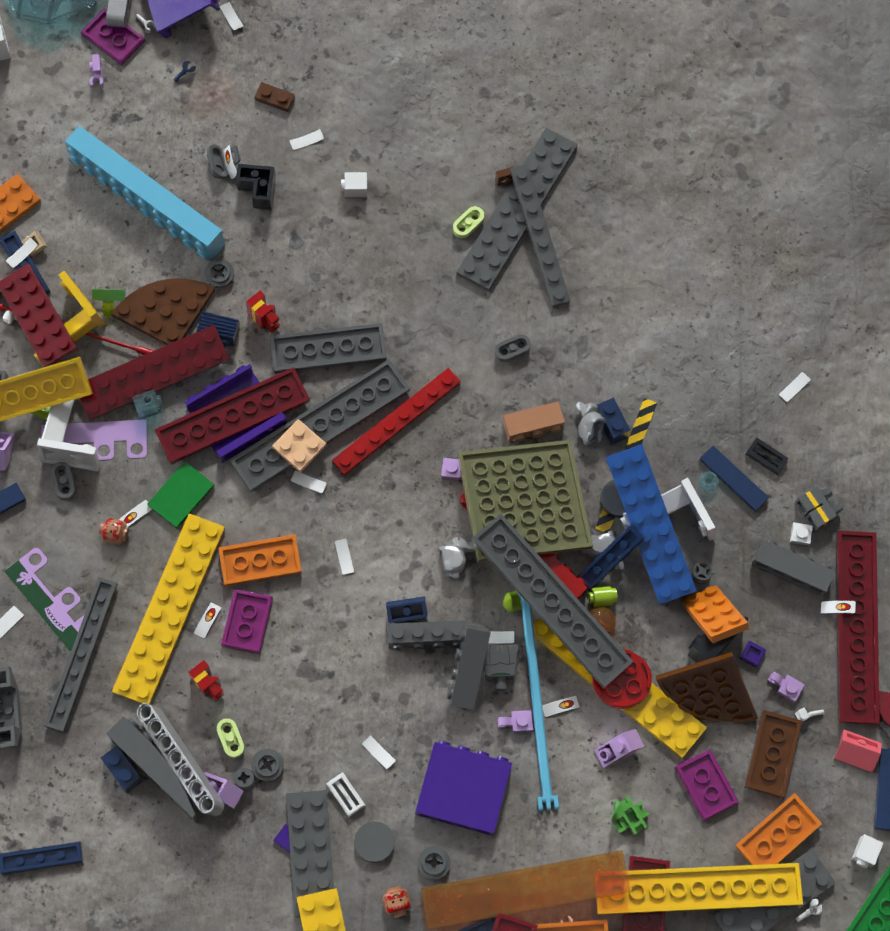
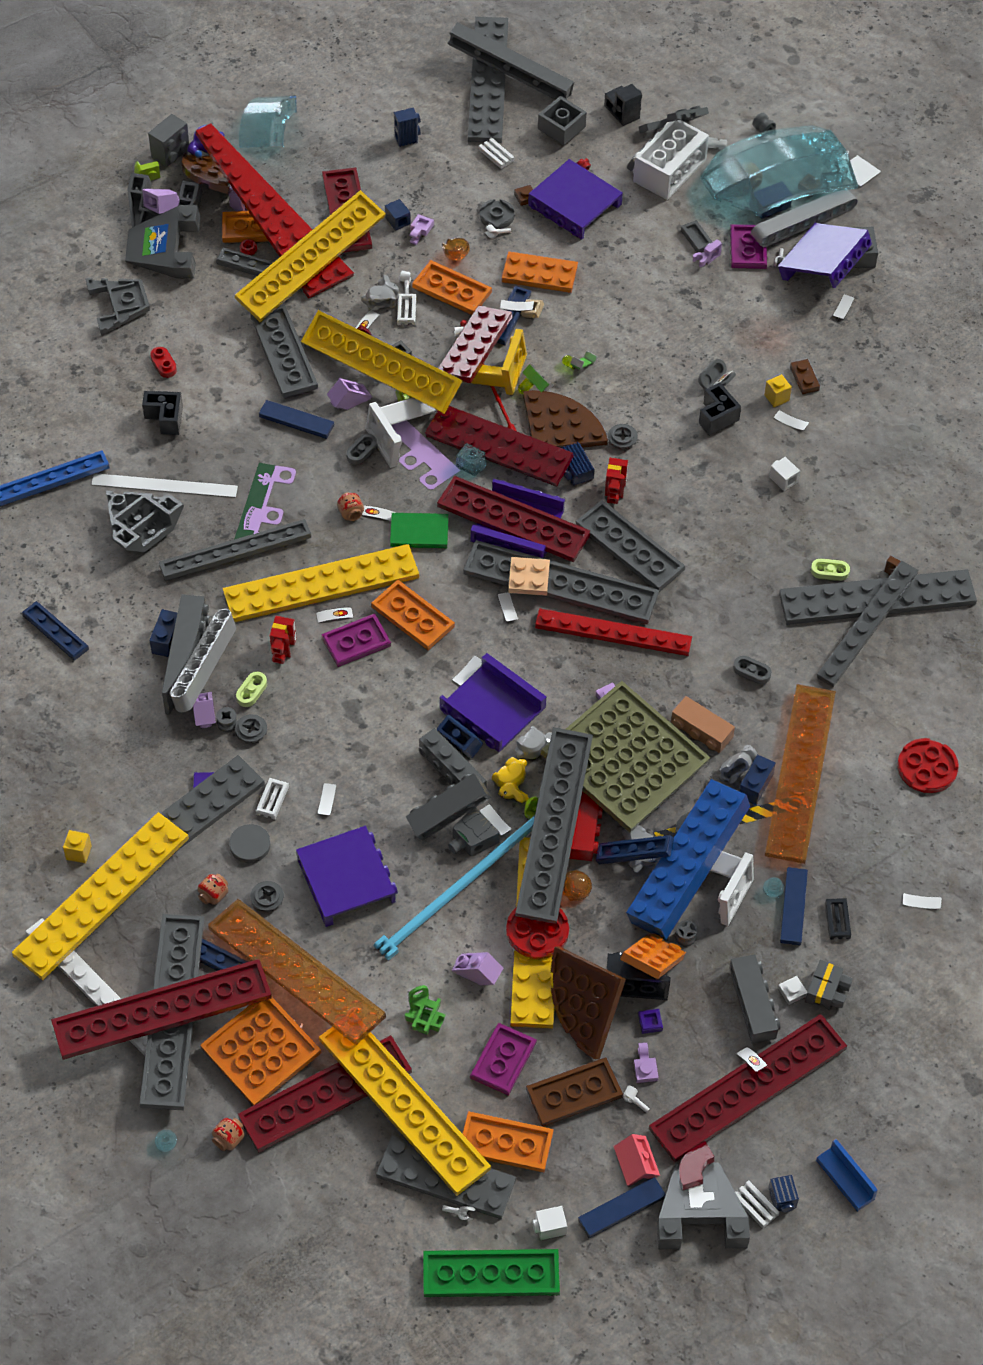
camera: 55 degrees right, 15 degrees down
(69, 65) = (696, 235): none -> dark grey tile
(122, 250) = (573, 362): none -> piece
(145, 194) = (637, 345): medium azure brick -> none
(185, 69) = (770, 305): dark blue hand -> none
(275, 127) = (778, 390): none -> yellow brick
(391, 561) = (494, 703): none -> dark purple panel
(471, 599) = (509, 779): none -> yellow animal
(519, 721) = (437, 881): lavender plate -> none
(560, 706) = (478, 905): white sticker -> none
(603, 596) = (598, 872): lime brick -> none
(628, 385) = (800, 774): none -> clear orange plate
(688, 292) = (927, 765): none -> red tile

